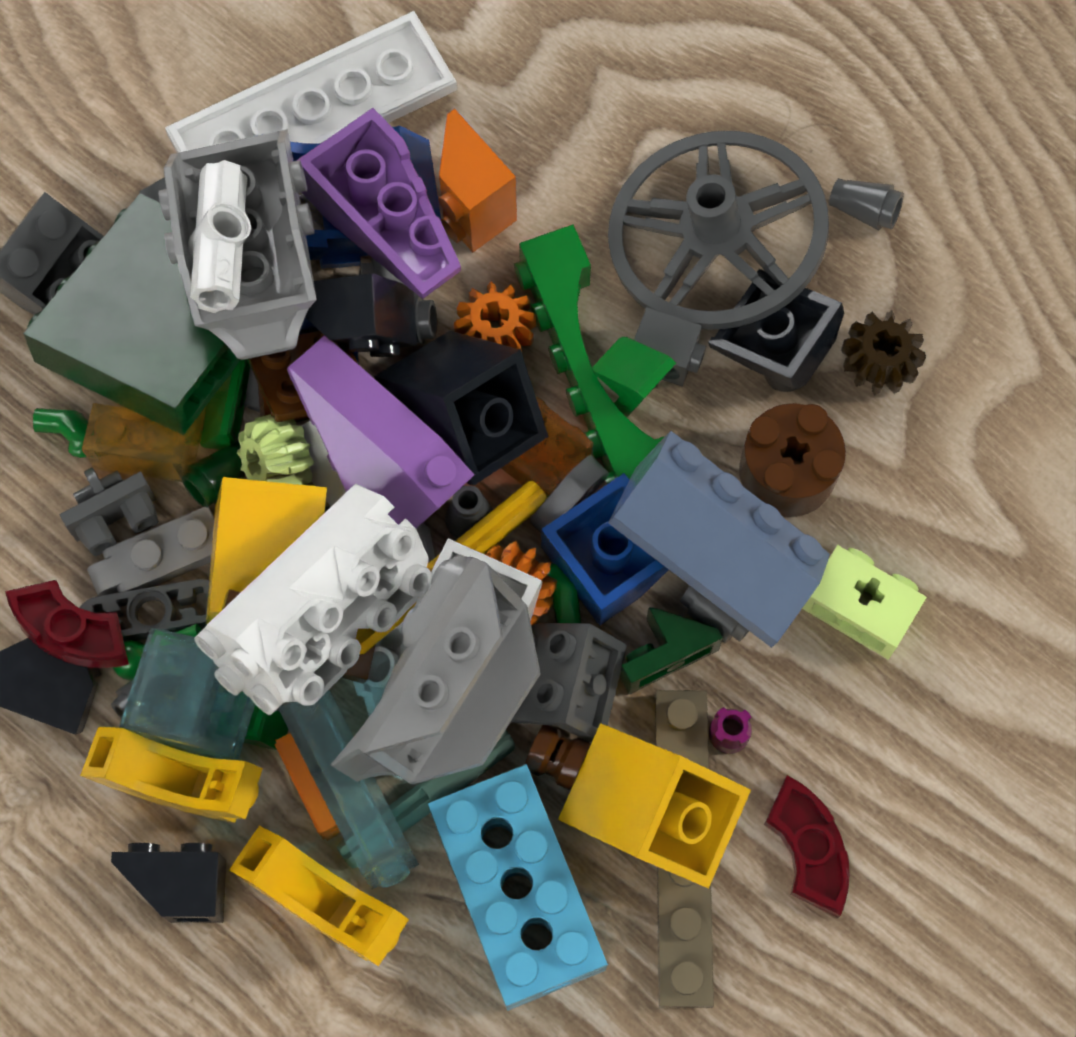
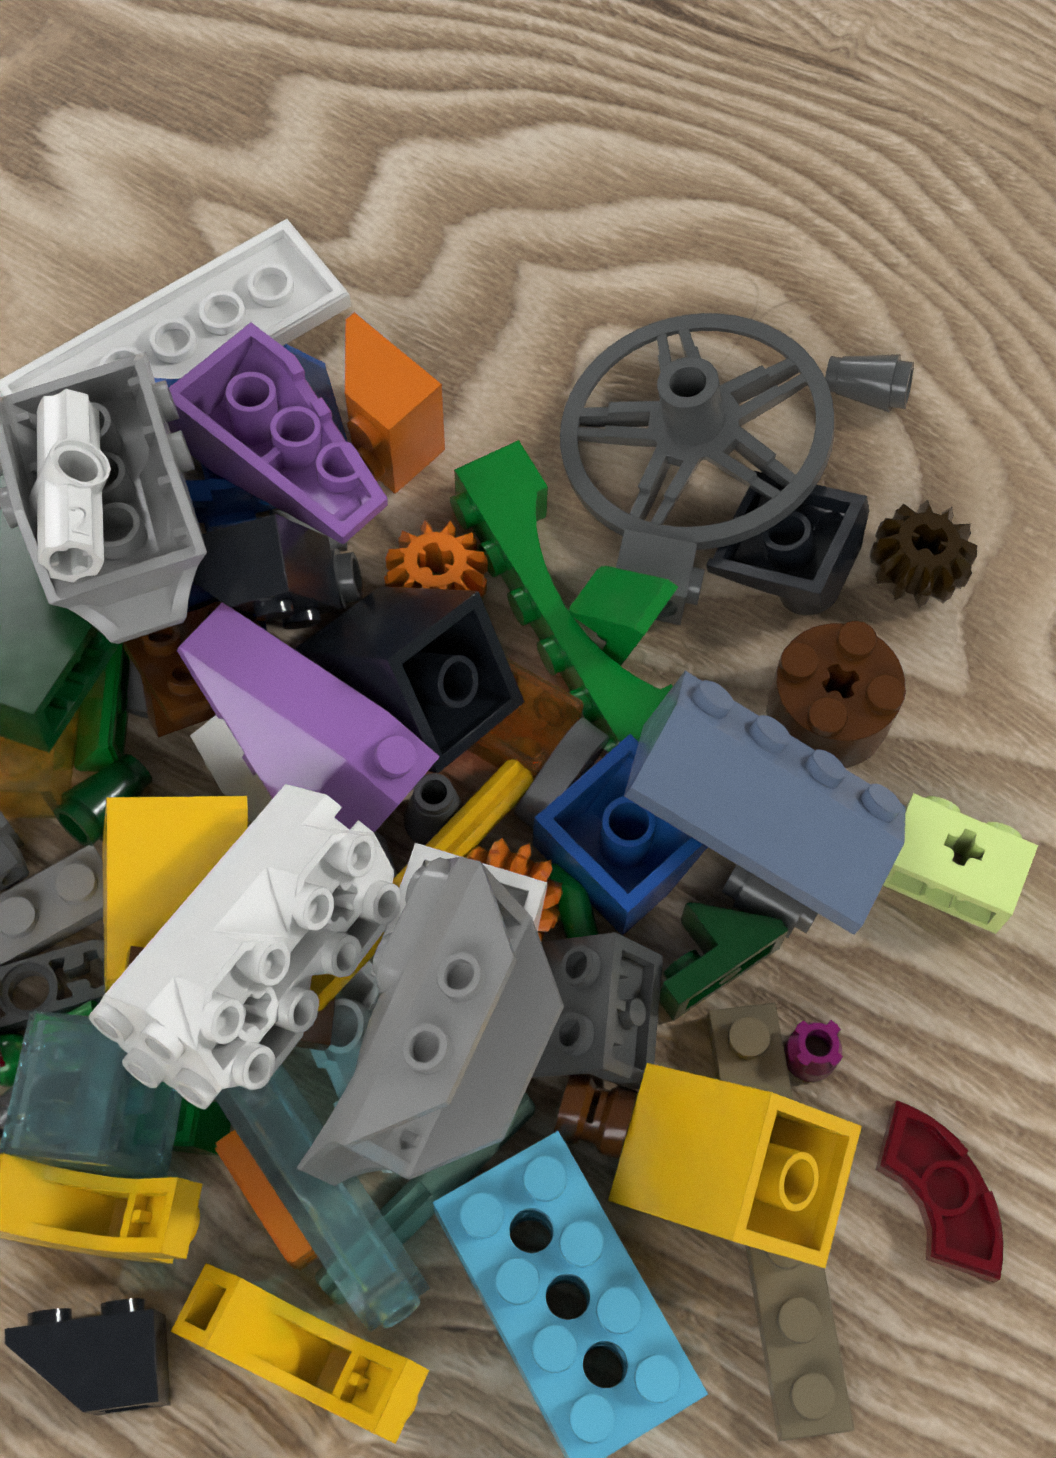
camera: 10 degrees left, 5 degrees down
(275, 451) = (173, 759): yellowish green gear -> none

